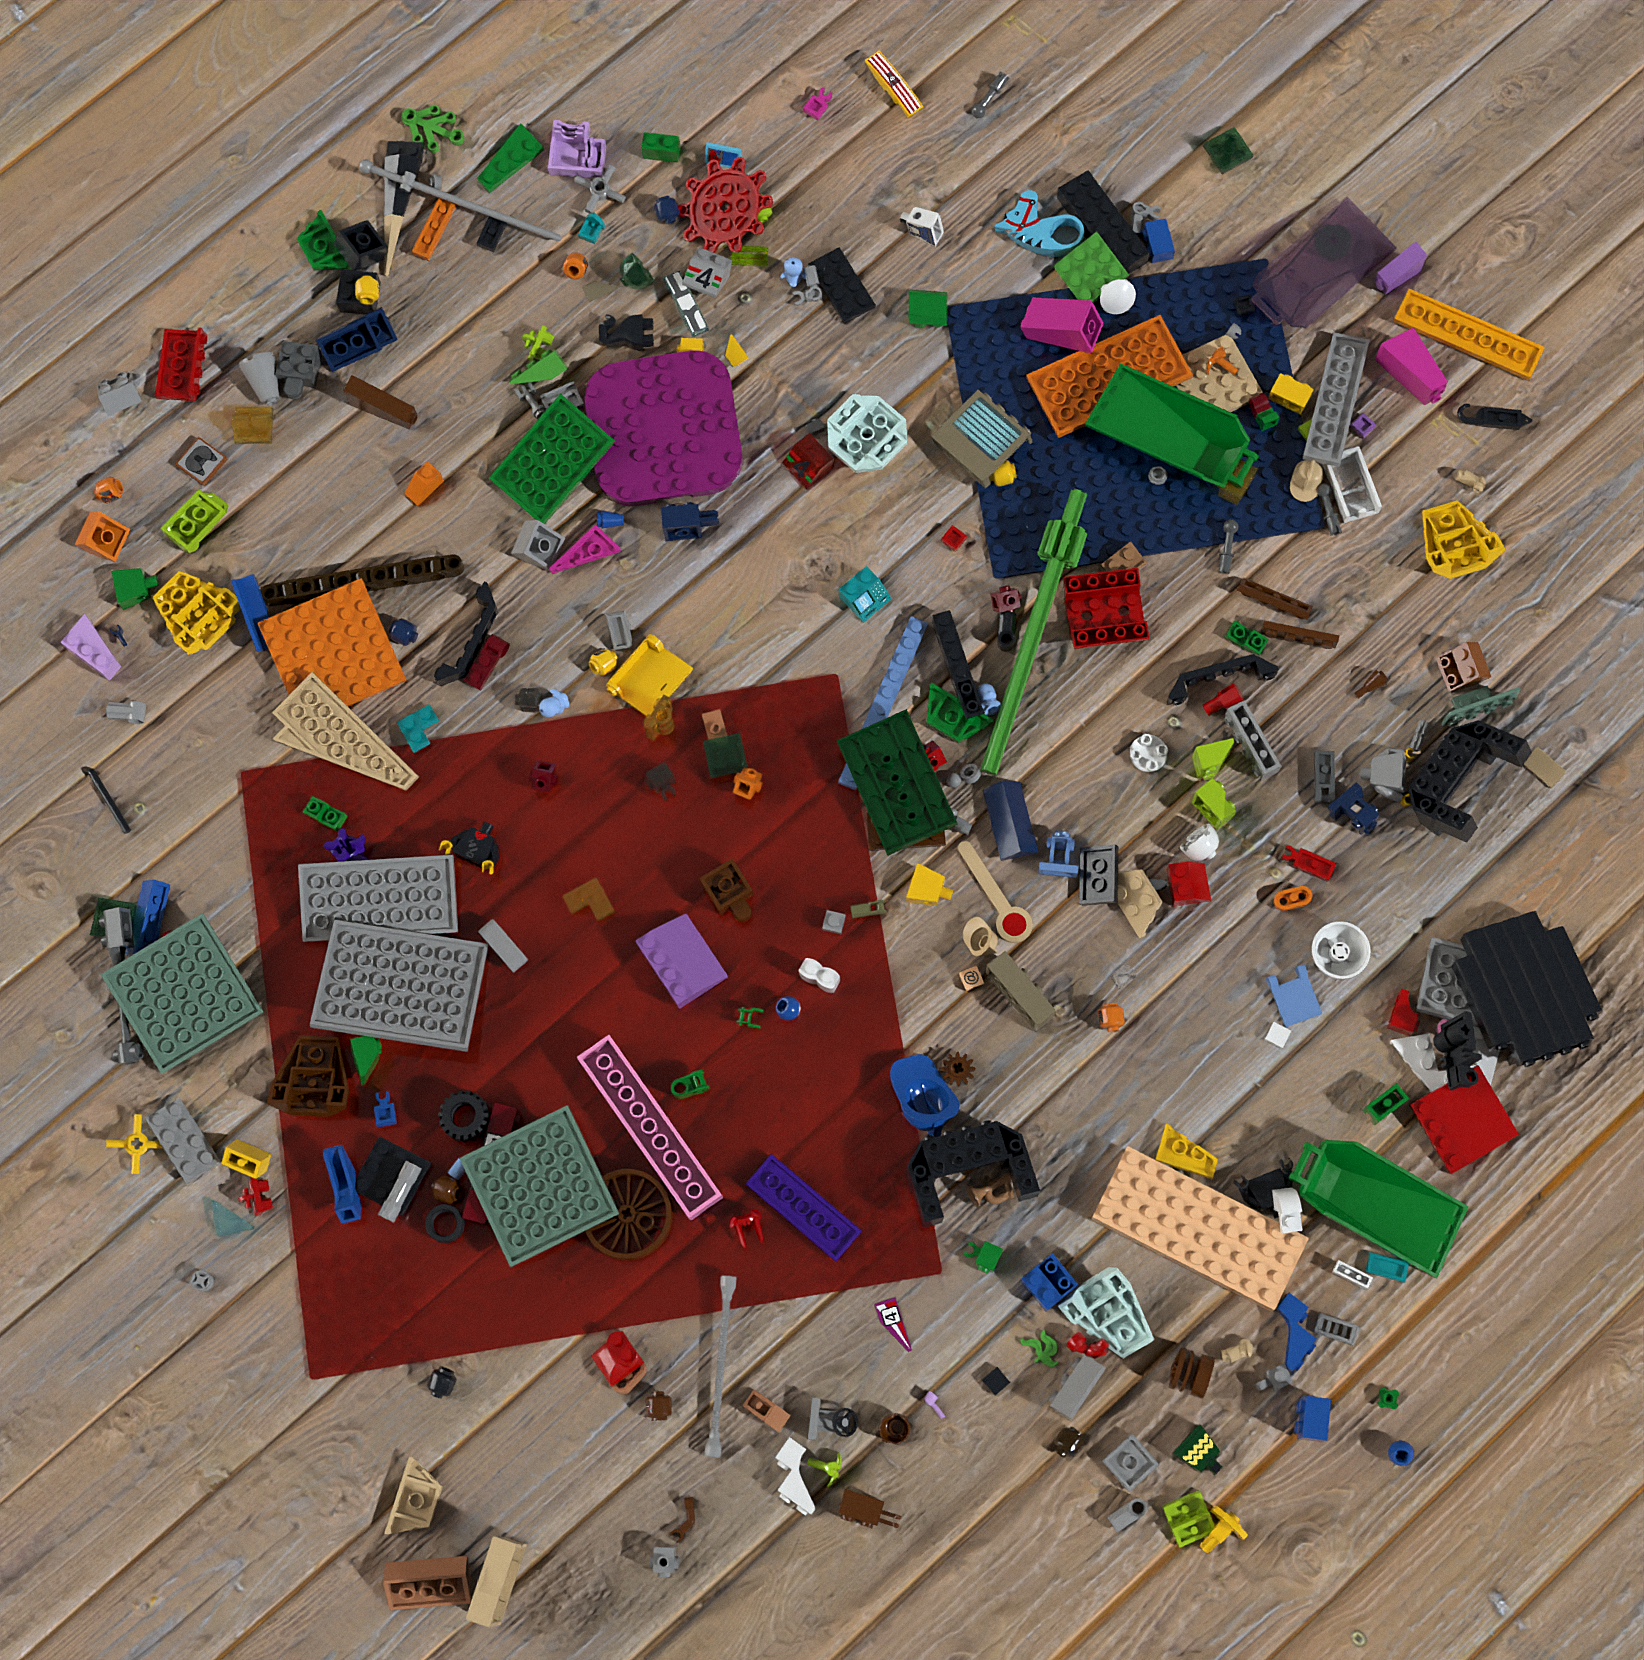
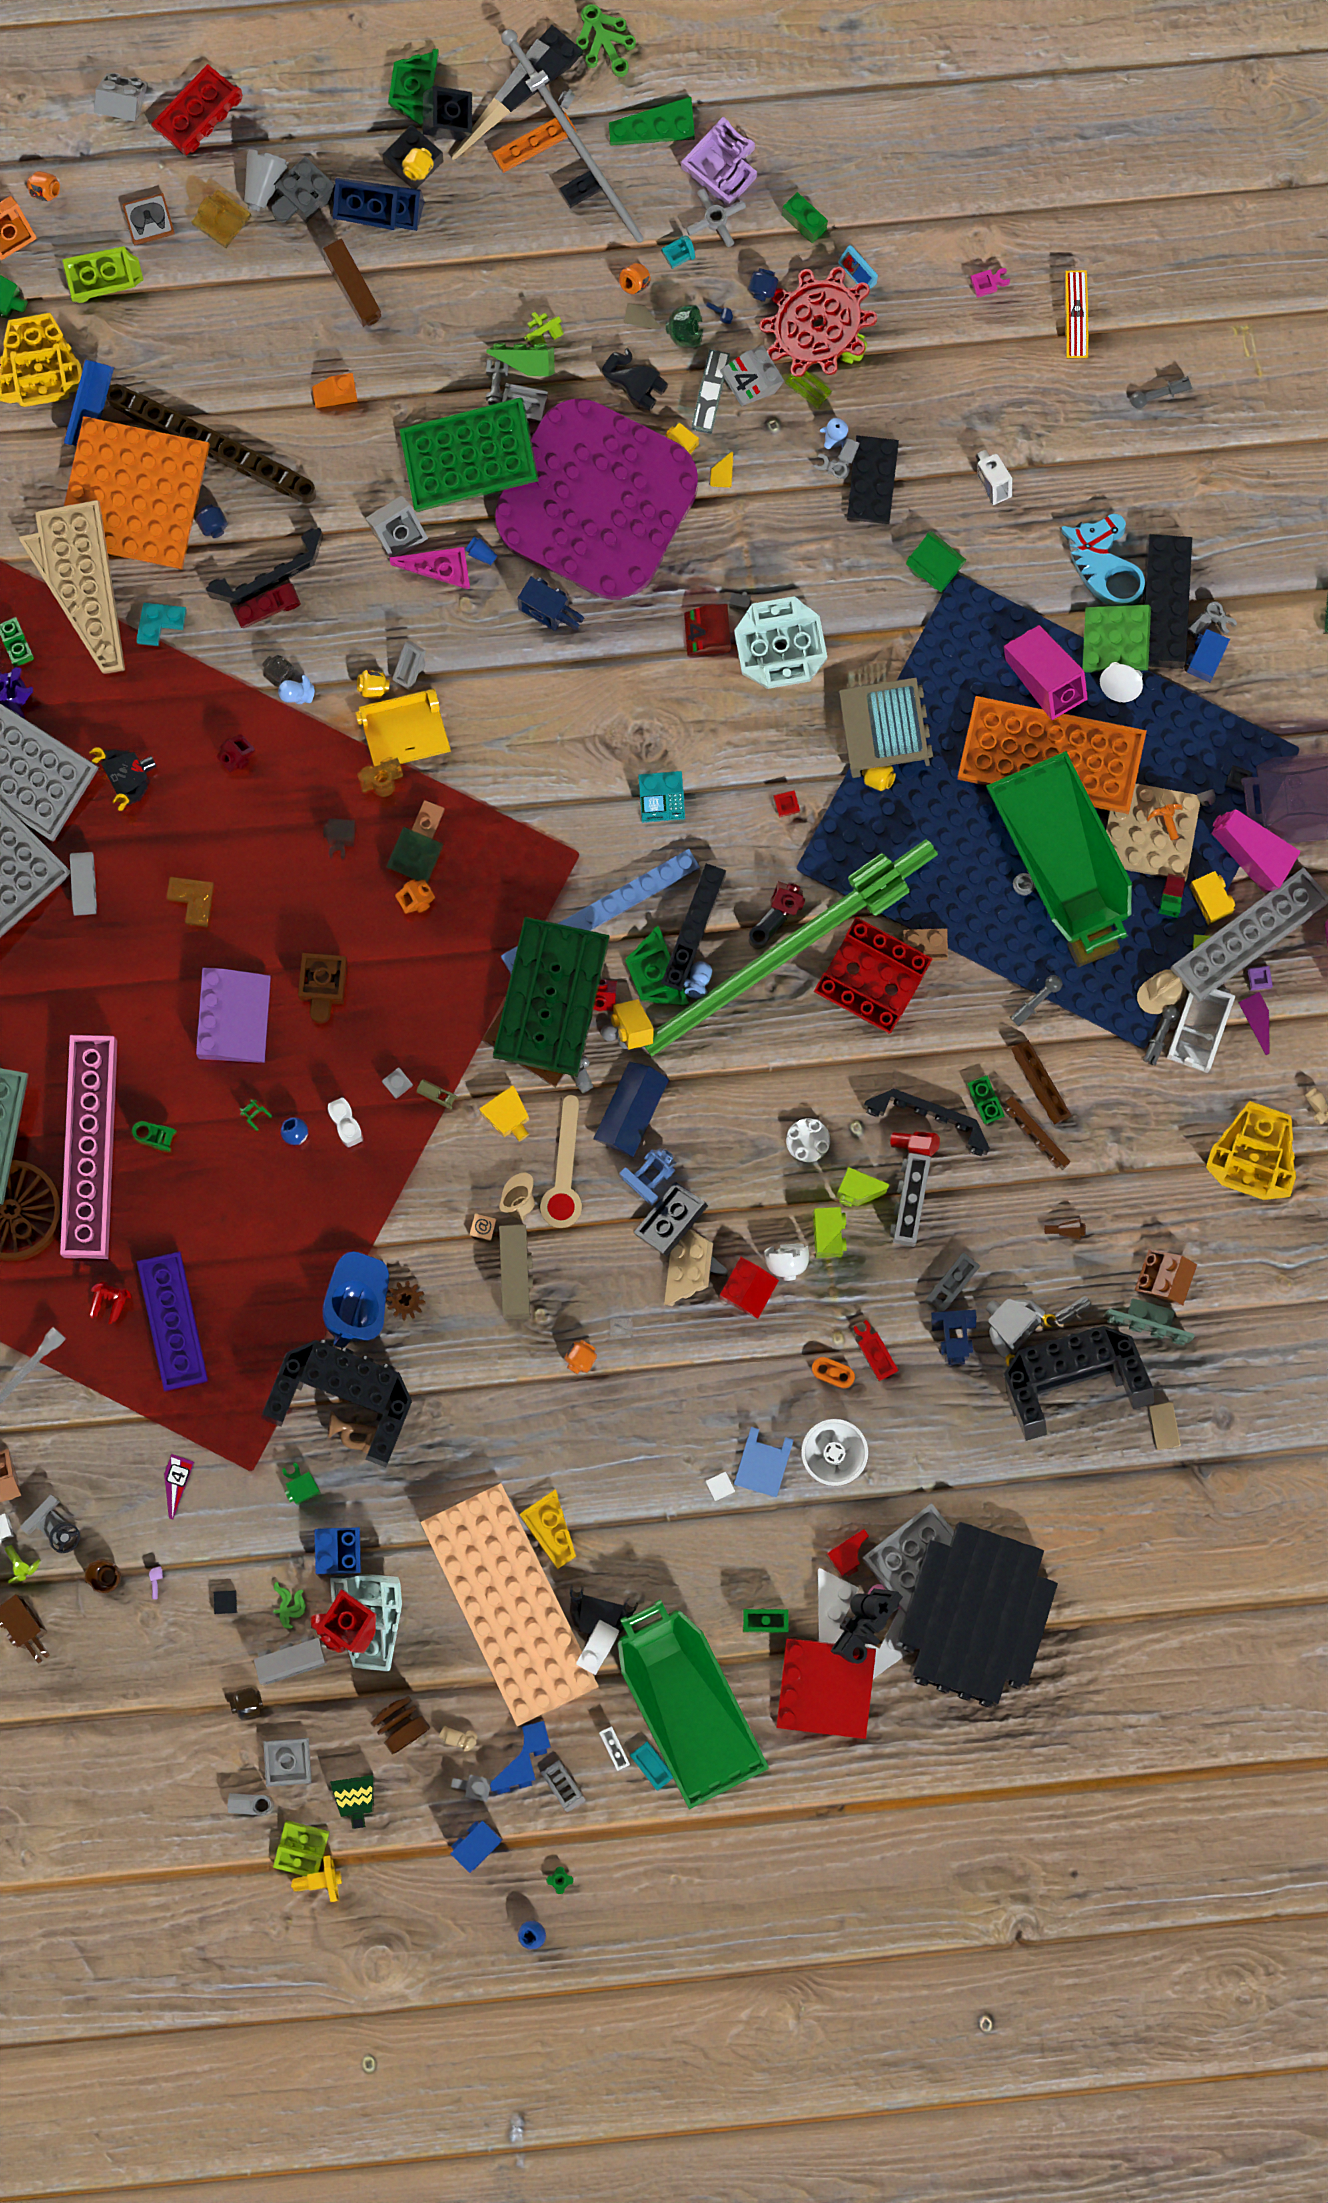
camera: 30 degrees right, 5 degrees up
(655, 246) = (726, 313): none -> dark blue hand
(968, 760) = (632, 1024): none -> yellow brick
(1100, 1325) = (350, 1623): none -> red slope
(1295, 340) = (1255, 849): none -> dark pink slope
(1382, 452) = (1258, 1018): none -> magenta sticker

